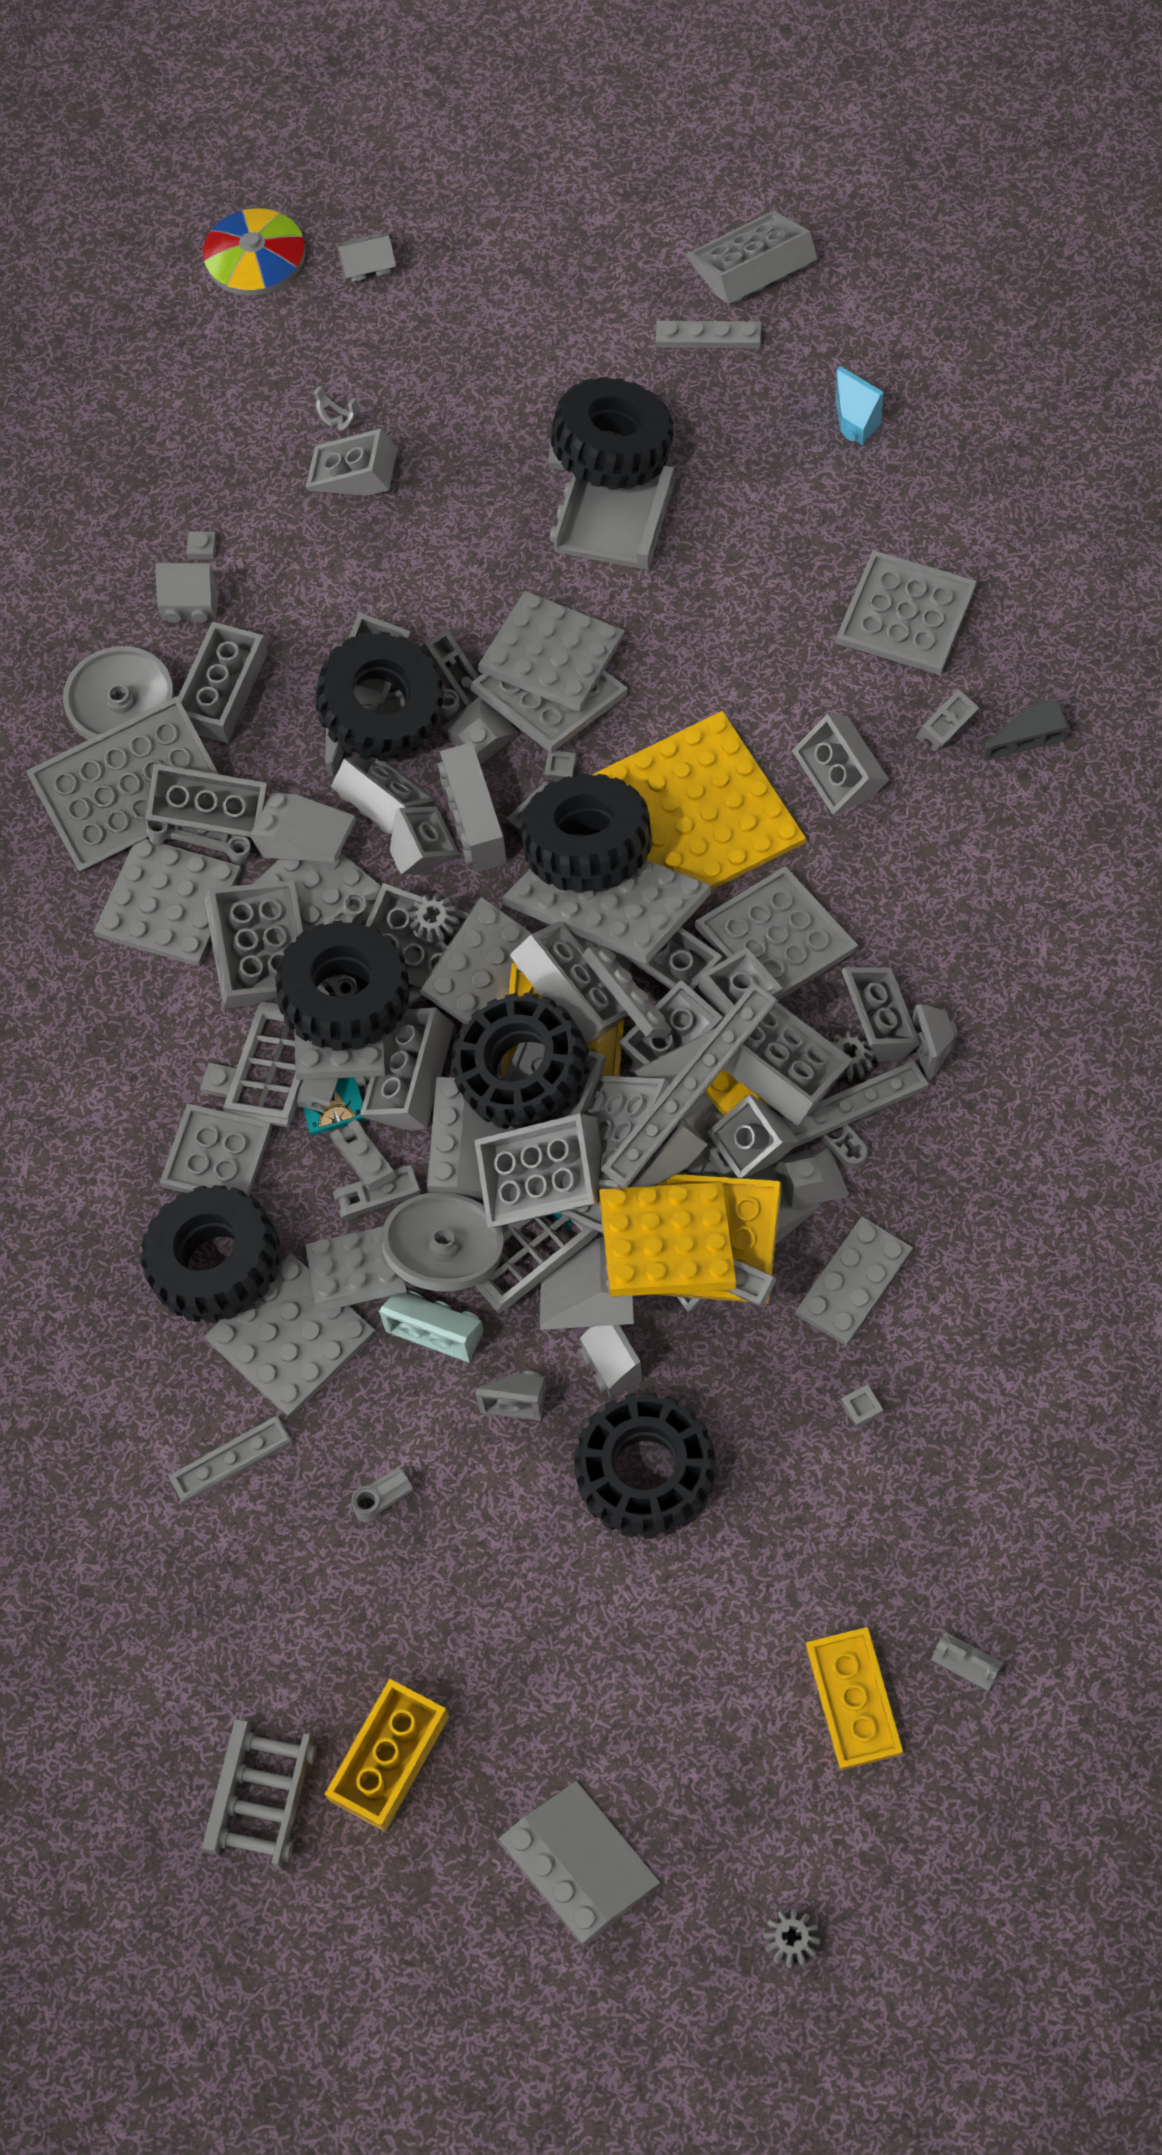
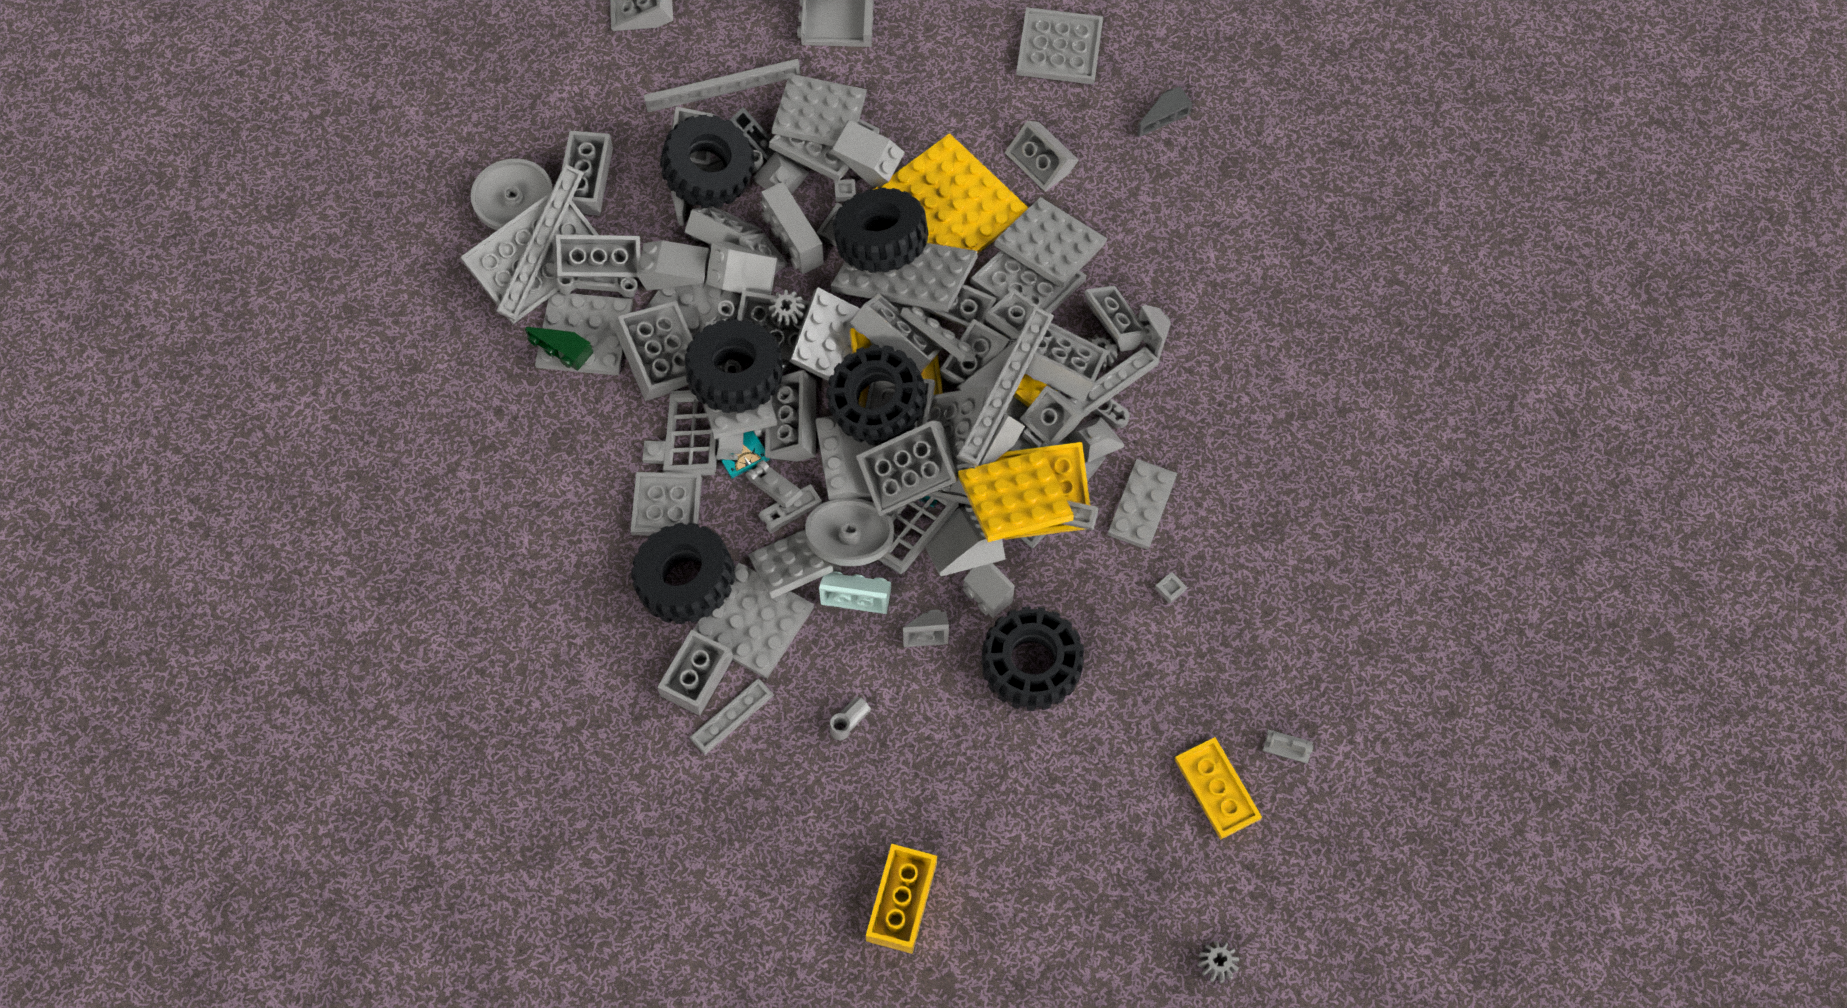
camera: 20 degrees left, 0 degrees up
(135, 768) = (539, 242): none -> light grey tile
(135, 914) = (564, 345): none -> dark green slope
(186, 592) = (543, 113): light grey slope -> none
(195, 1391) = (695, 672): none -> light grey brick
(201, 545) = (544, 80): light grey plate -> none
(235, 1772) = (794, 935): light grey fence -> none
(388, 852) = (740, 269): none -> light grey slope
(431, 591) = (721, 85): none -> light grey tile
(578, 1863) = (1055, 944): light grey slope -> none
(599, 721) = (867, 153): none -> light grey slope
(820, 889) = (1050, 242): none -> light grey plate
(947, 720) = (1108, 113): light grey hinge -> none

